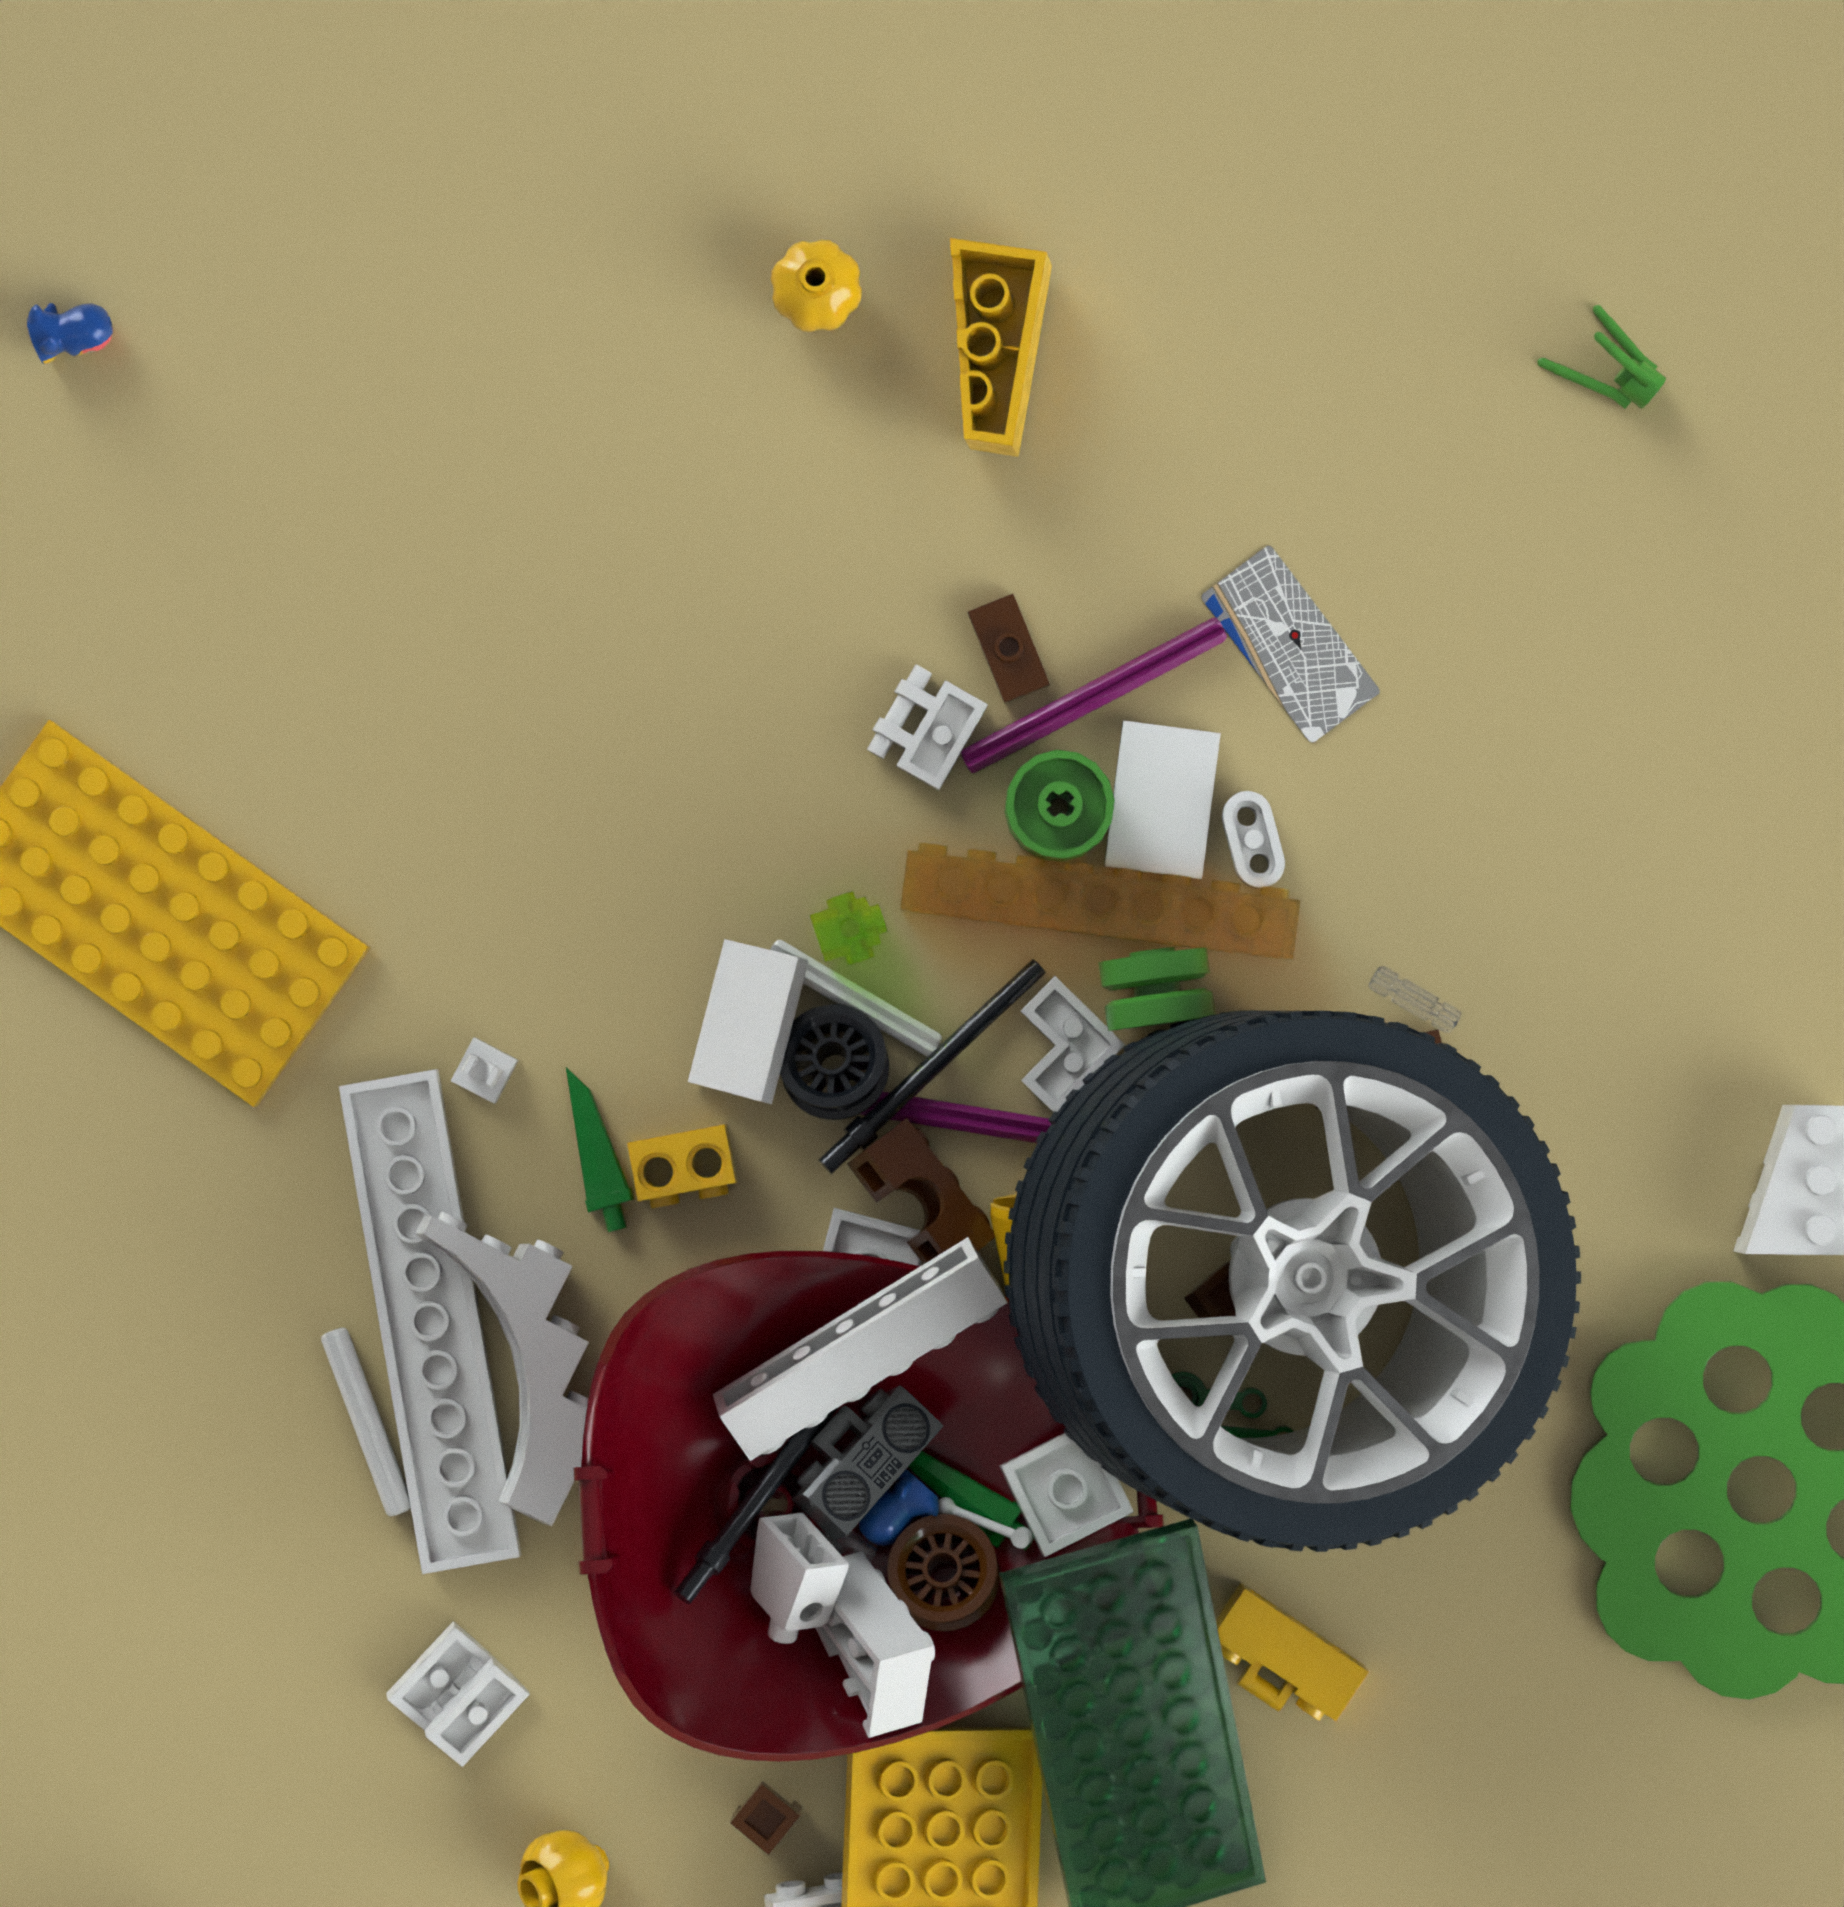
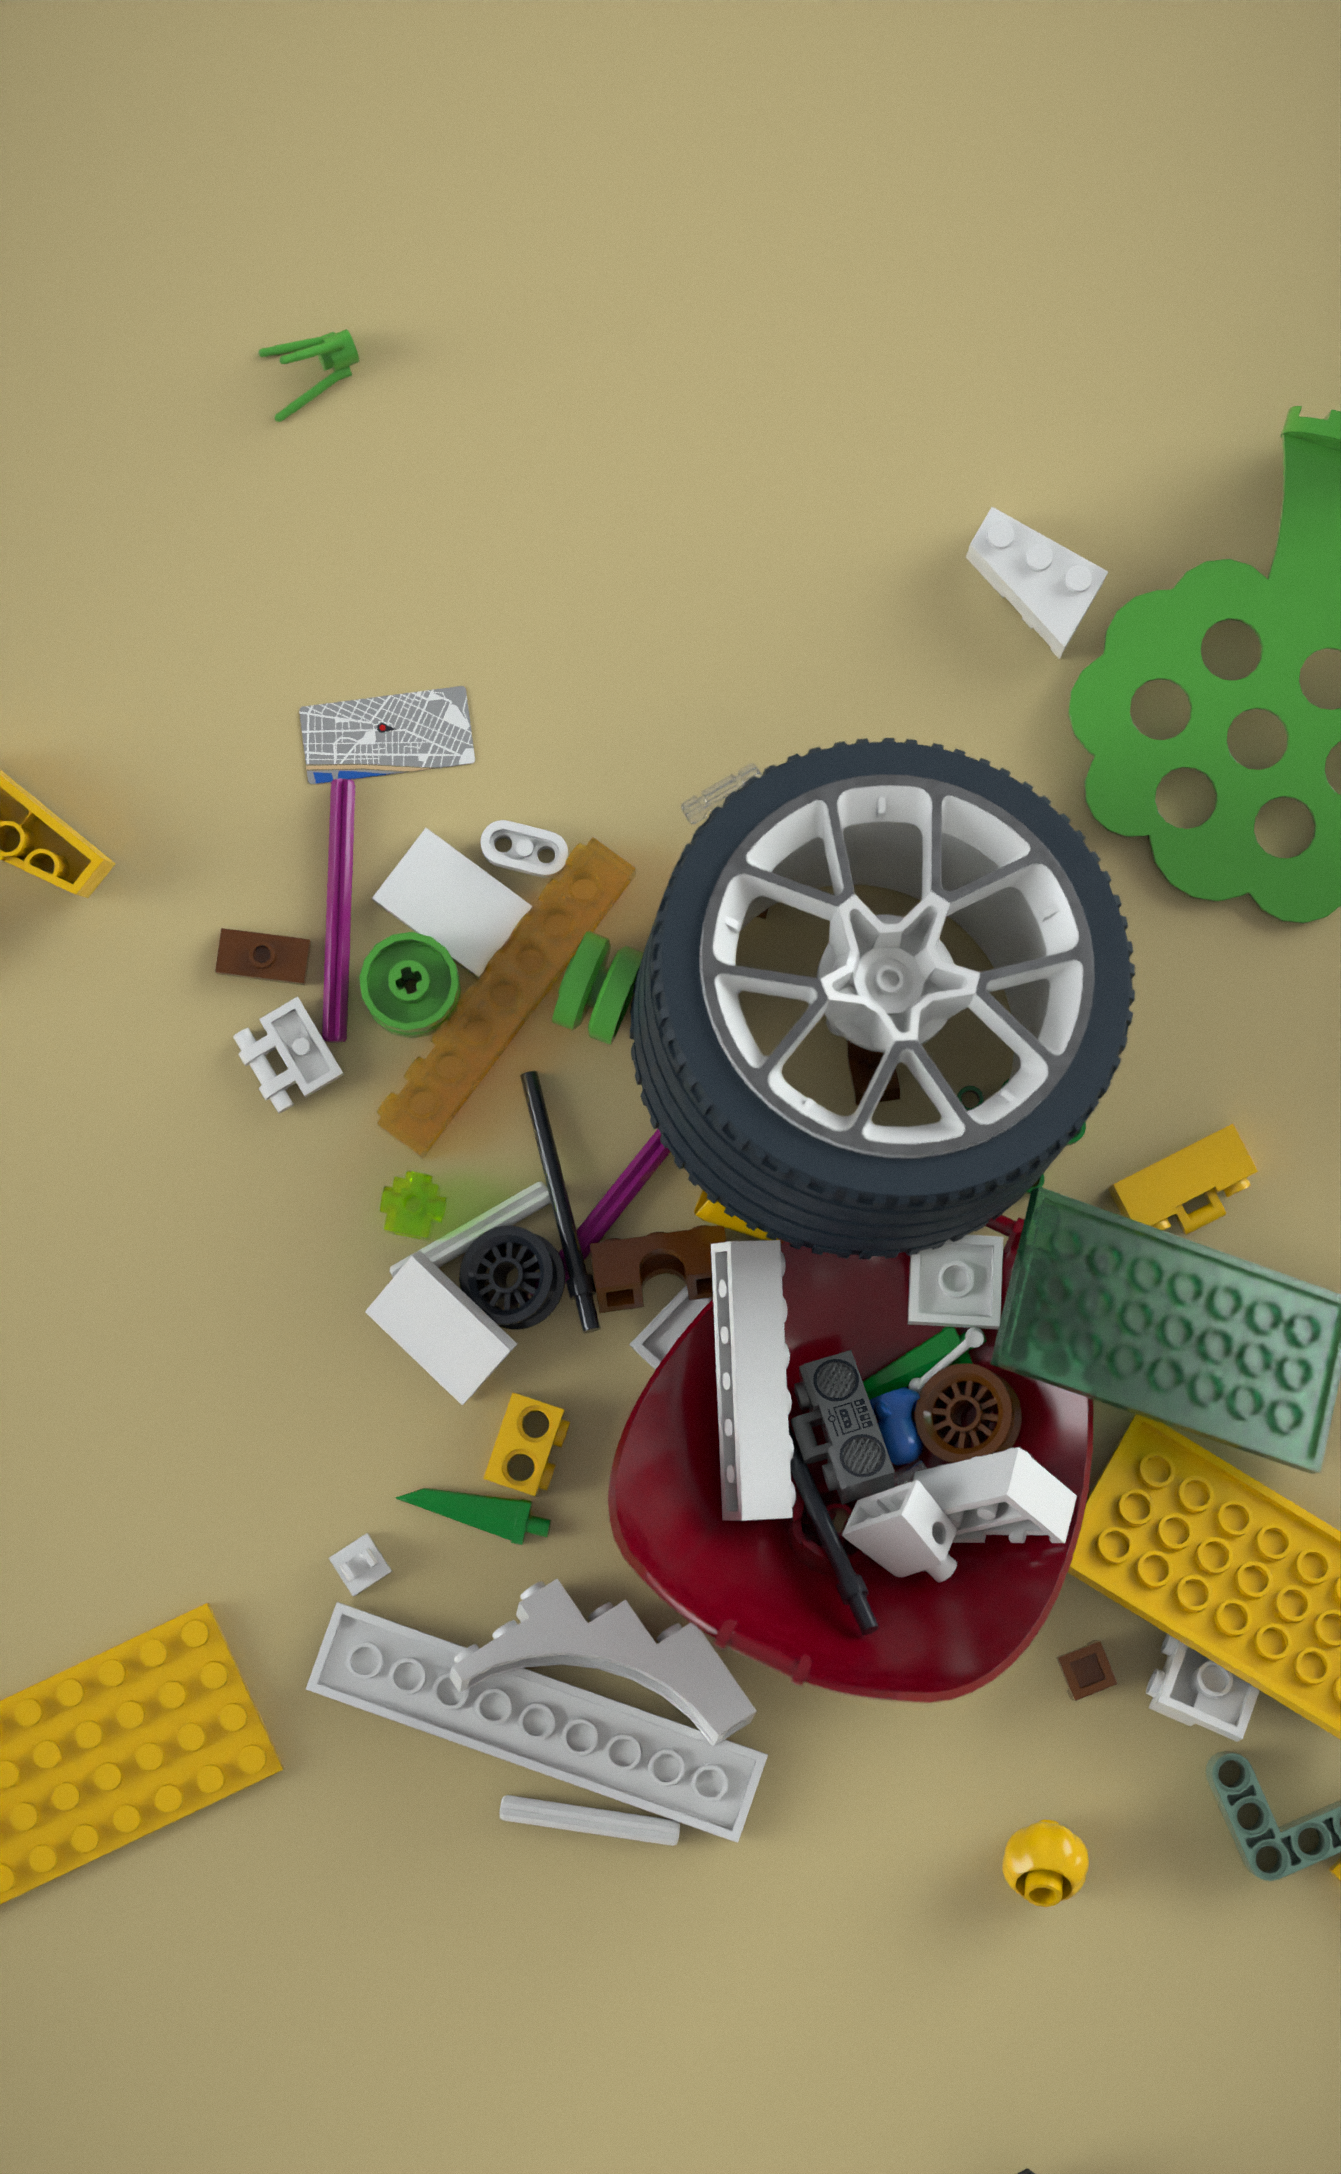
camera: 65 degrees left, 5 degrees down
(457, 1693) = (851, 1869): white slope -> none
(1079, 1043) = (602, 1074): white plate -> none

